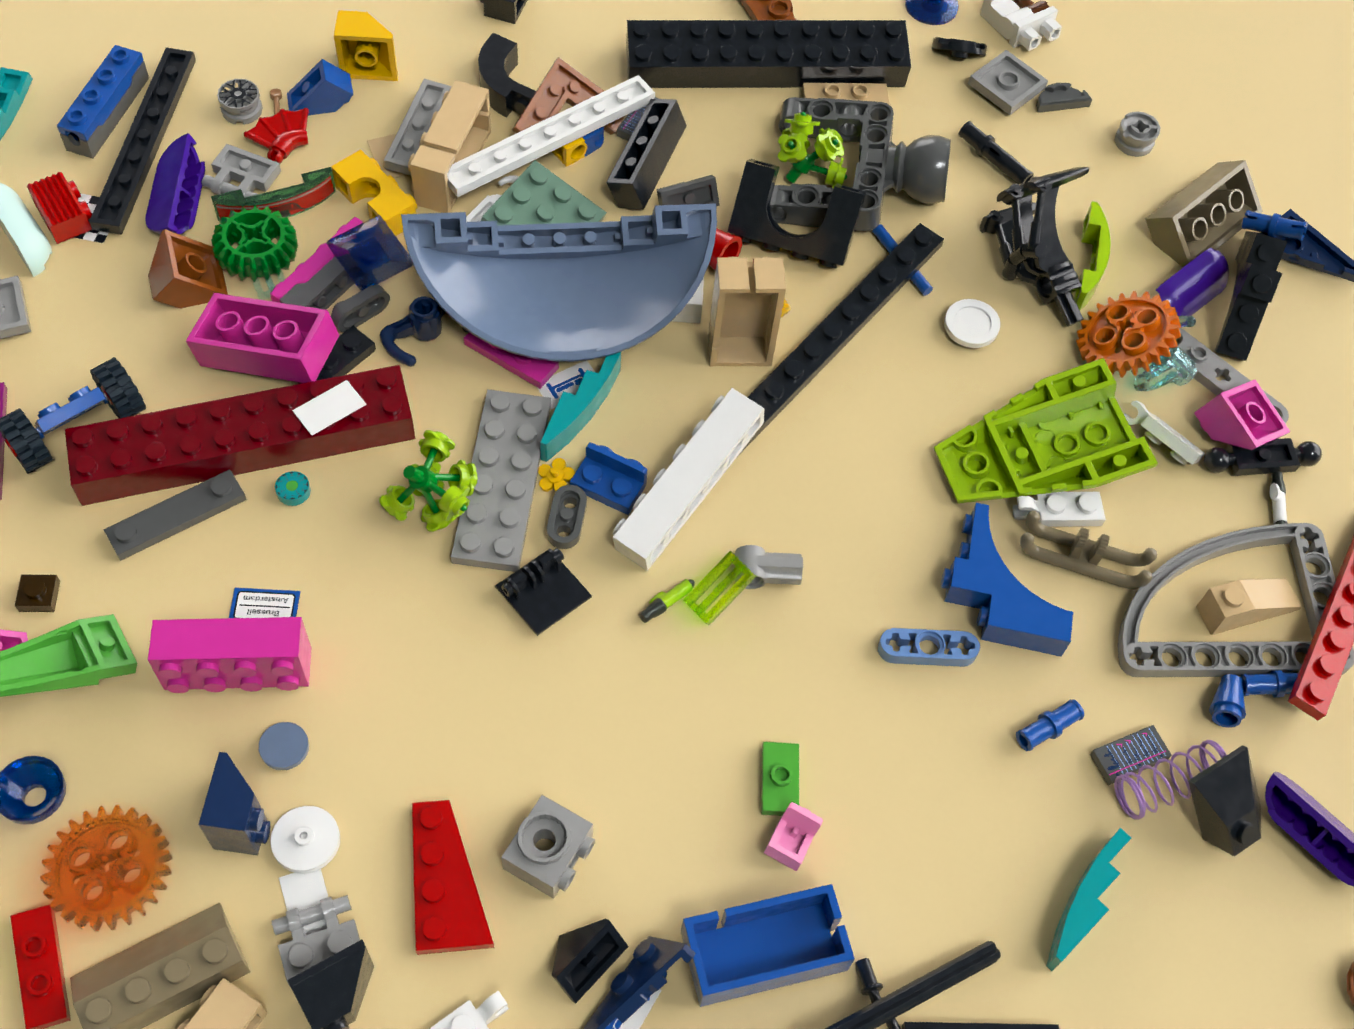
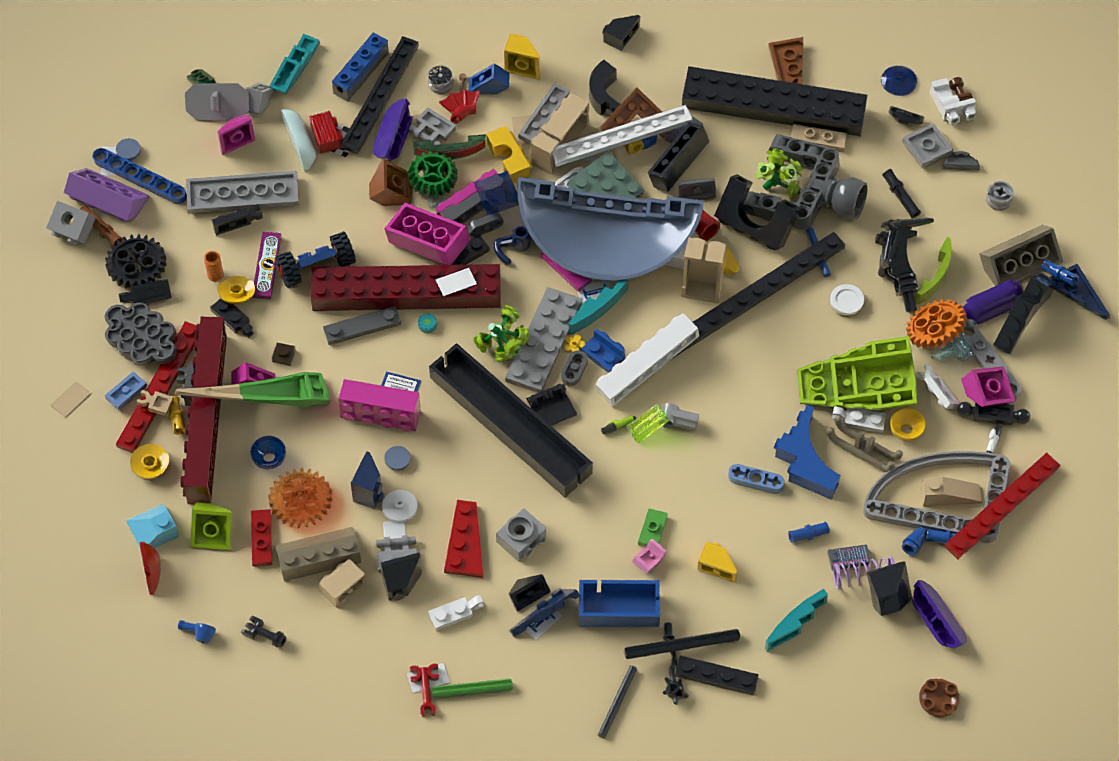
camera: 20 degrees right, 0 degrees up
(480, 632) = (511, 420): none -> black piece
(915, 817) = (717, 562): none -> yellow slope
(1147, 493) = (907, 417): none -> yellow piece

